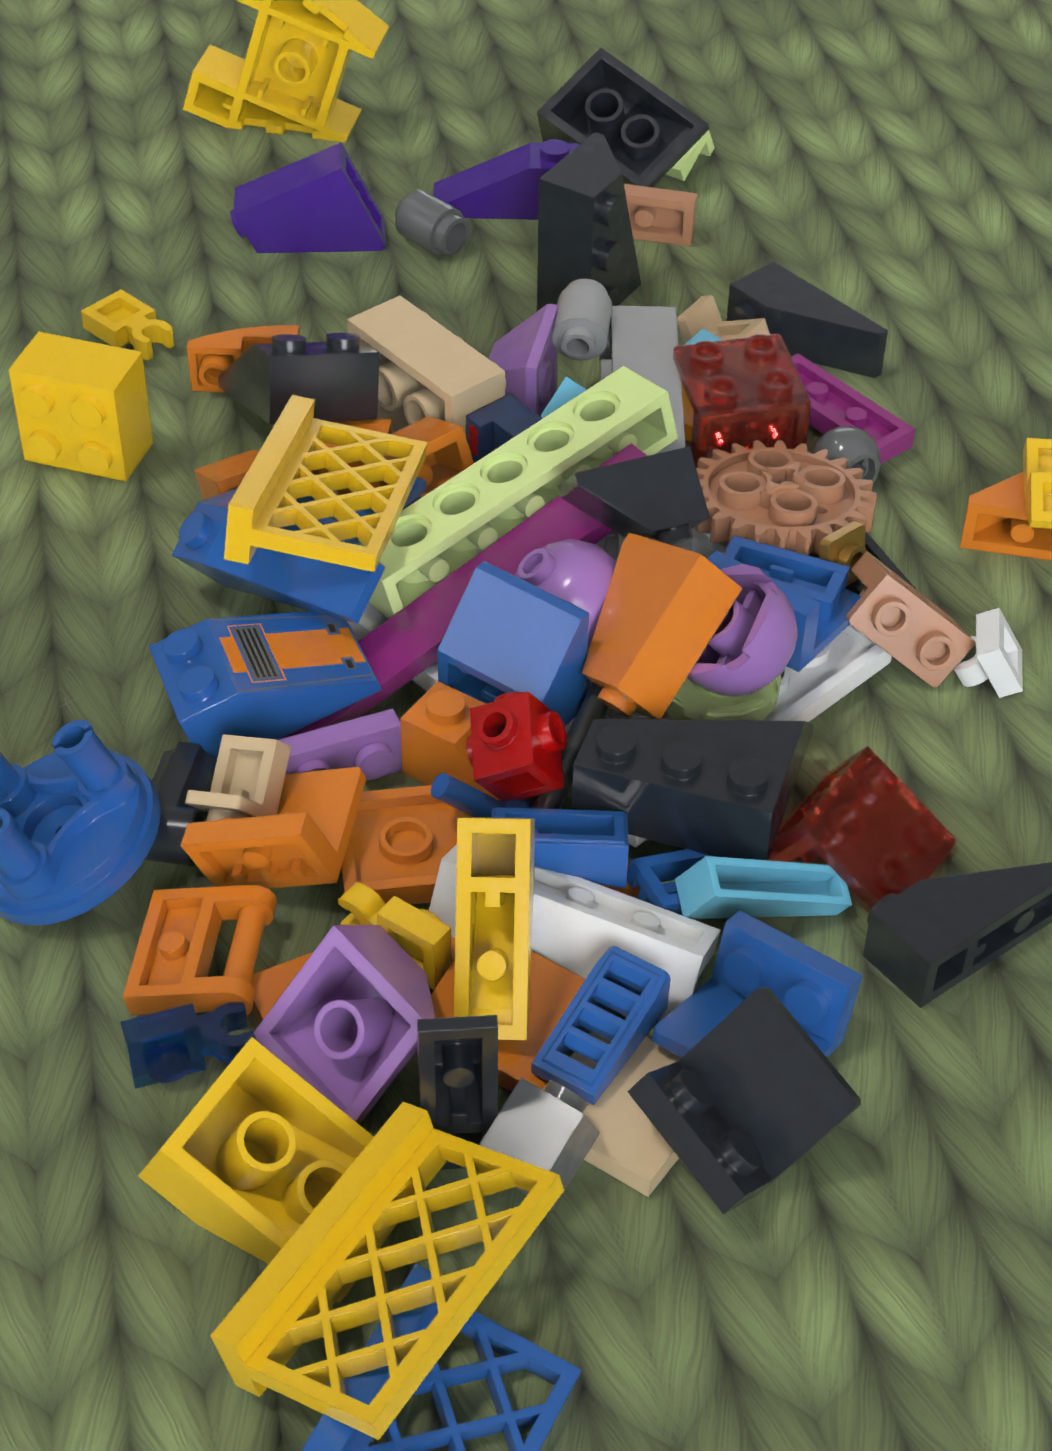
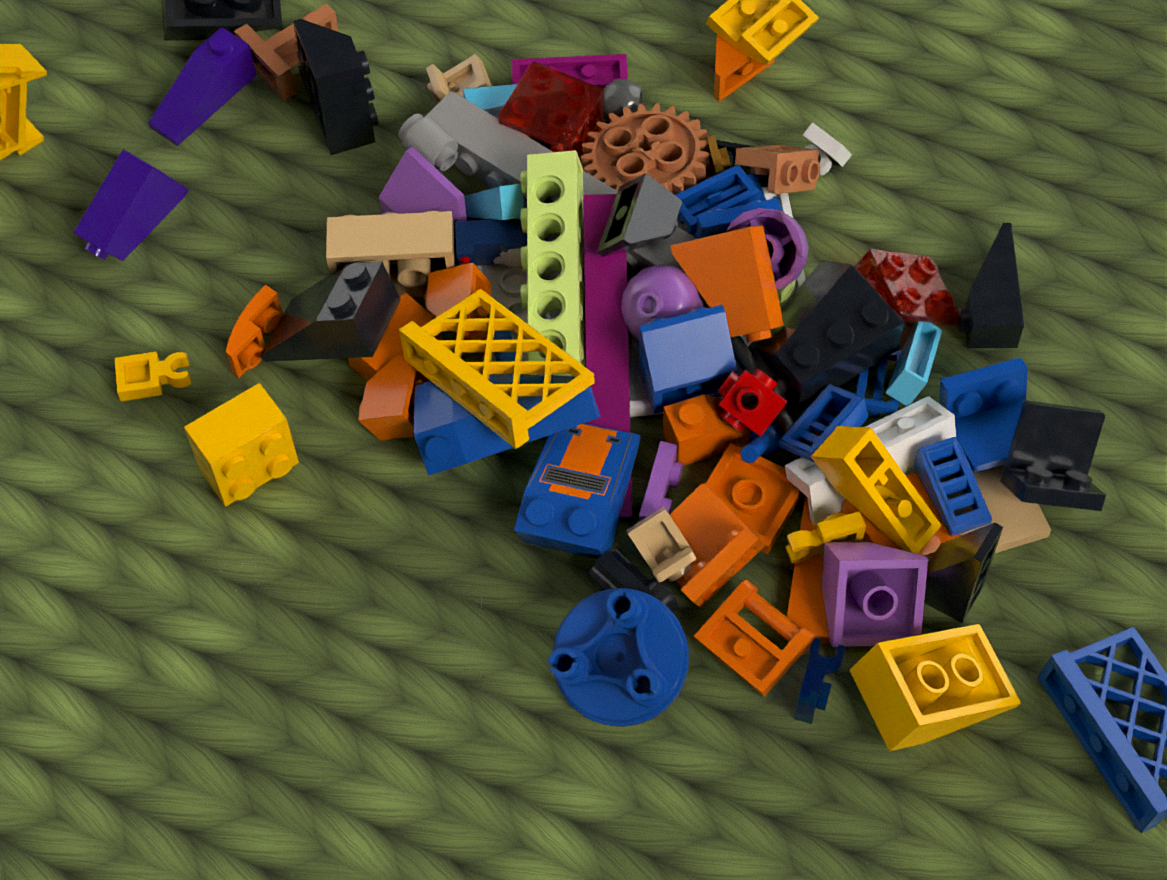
camera: 50 degrees left, 15 degrees up
(342, 1245) = (1016, 686): yellow fence -> none
(431, 223) = (201, 152): dark grey brick -> none
(543, 1129) = (1012, 563): brick -> none
(809, 320) = (483, 33): black slope -> none

